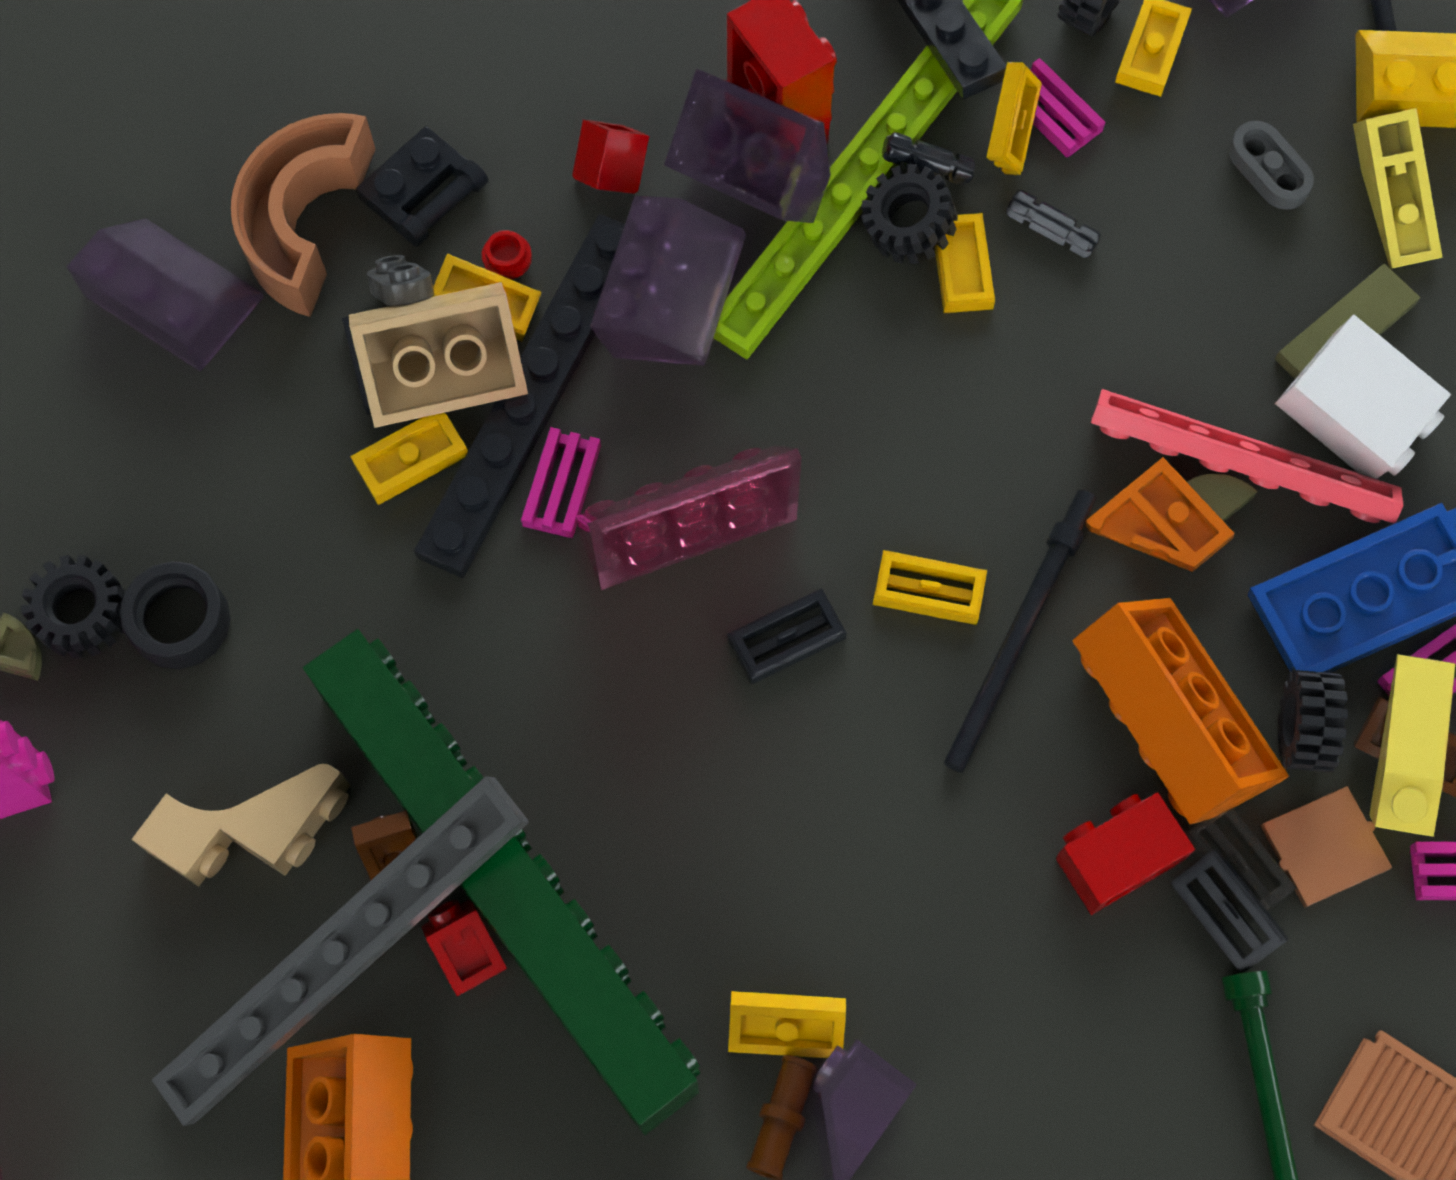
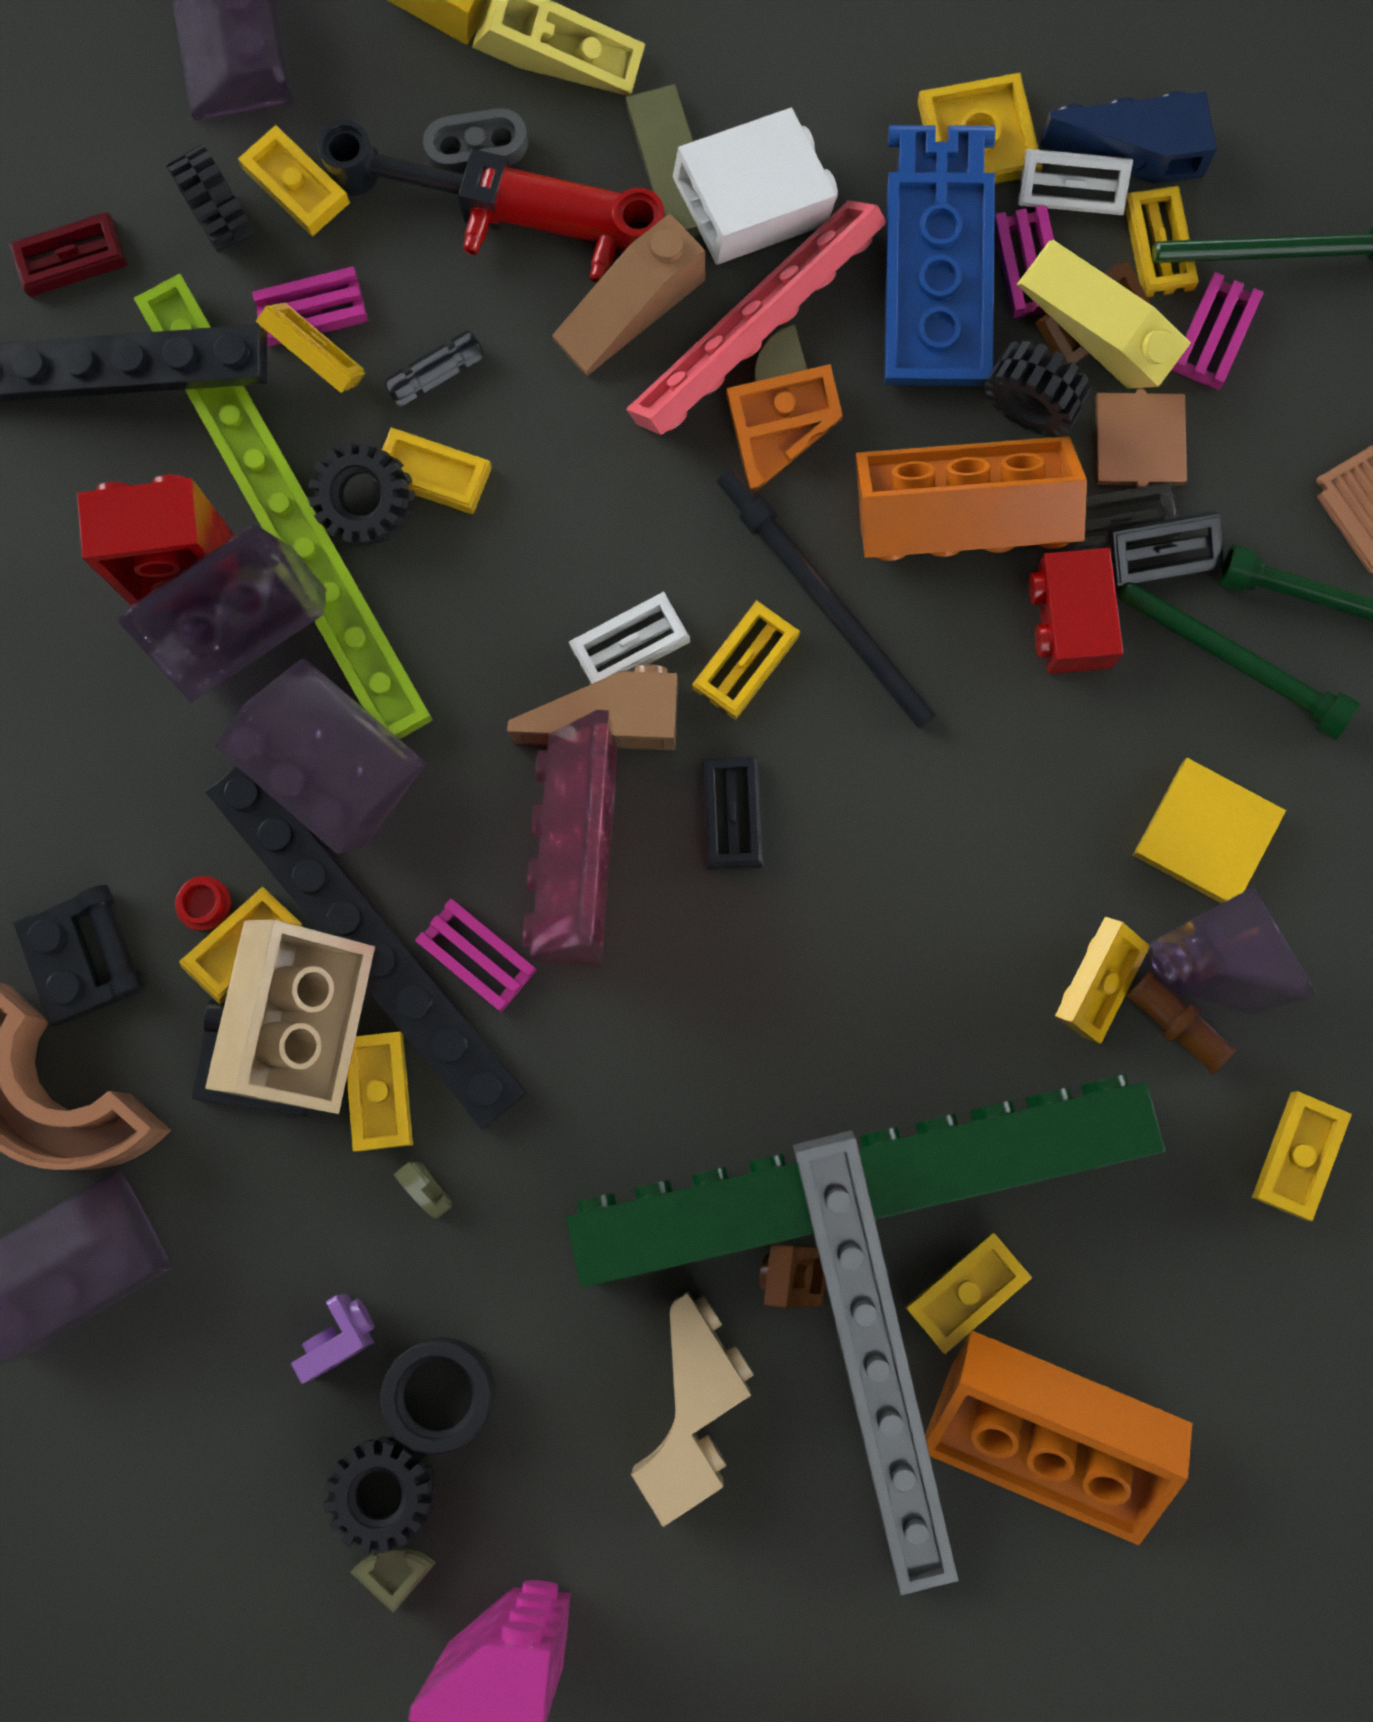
camera: 60 degrees left, 10 degrees up
(185, 518) = (329, 1349): none -> medium lavender bracket
(343, 526) = (423, 1189): none -> olive tile
(399, 281) = (188, 1022): dark grey plate -> none
(446, 1025) = (968, 1292): none -> yellow plate
(462, 945) = (912, 1244): red bracket -> none
(610, 156) = (146, 752): red panel -> none
(831, 499) = (638, 702): none -> medium nougat slope
(886, 500) = (621, 622): none -> white tile
(900, 148) = (310, 448): black axle -> none
(977, 1070) = (1209, 832): none -> yellow tile
(1154, 1134) = (1327, 710): none -> dark green piece
(1207, 347) = (633, 294): none -> medium nougat slope
(1233, 200) = (498, 194): none -> piece

